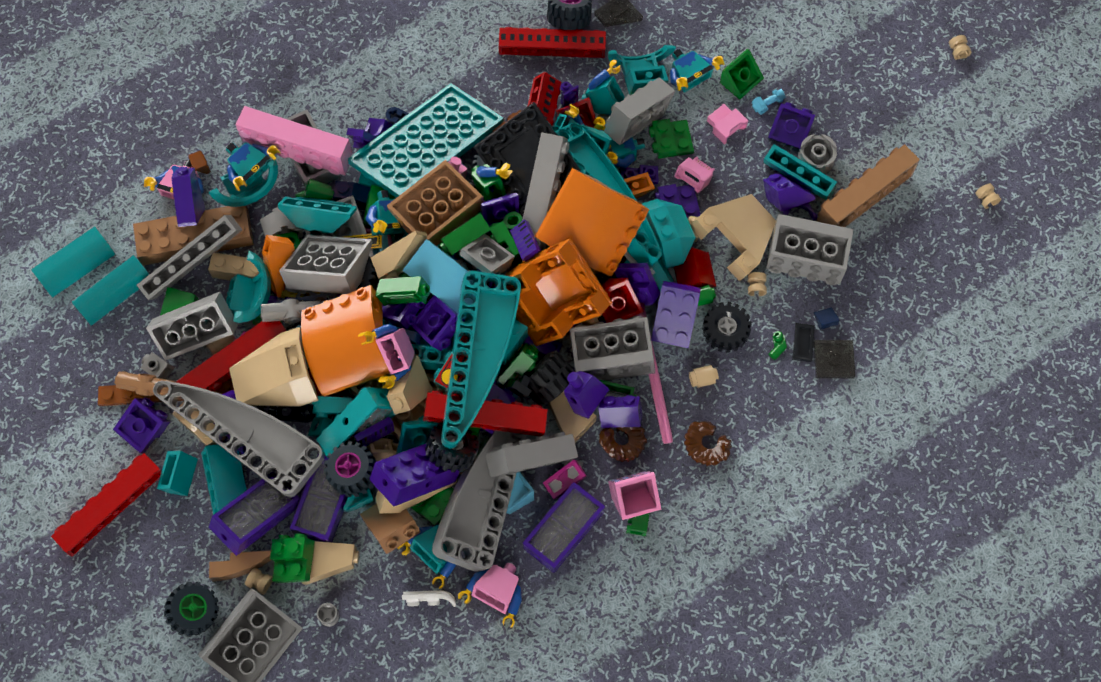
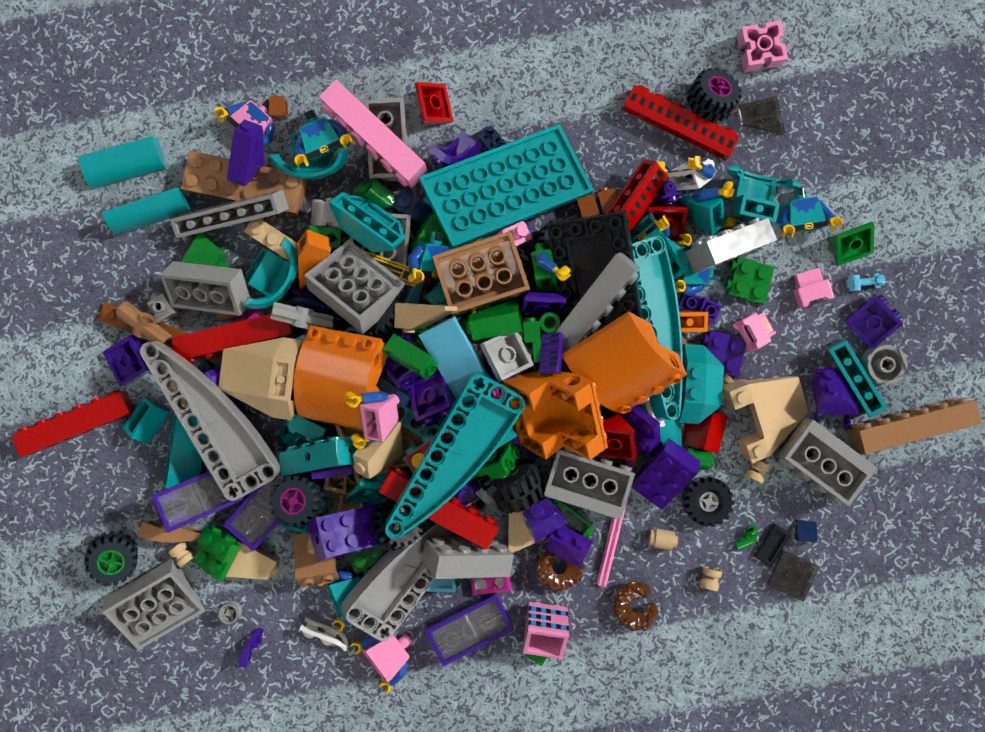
camera: 25 degrees right, 20 degrees up
(334, 109) = (433, 104): none -> red slope
(361, 634) = (254, 642): none -> dark purple slope
(582, 71) = (690, 174): none -> torso
(763, 391) = (710, 578): none -> tan wheel

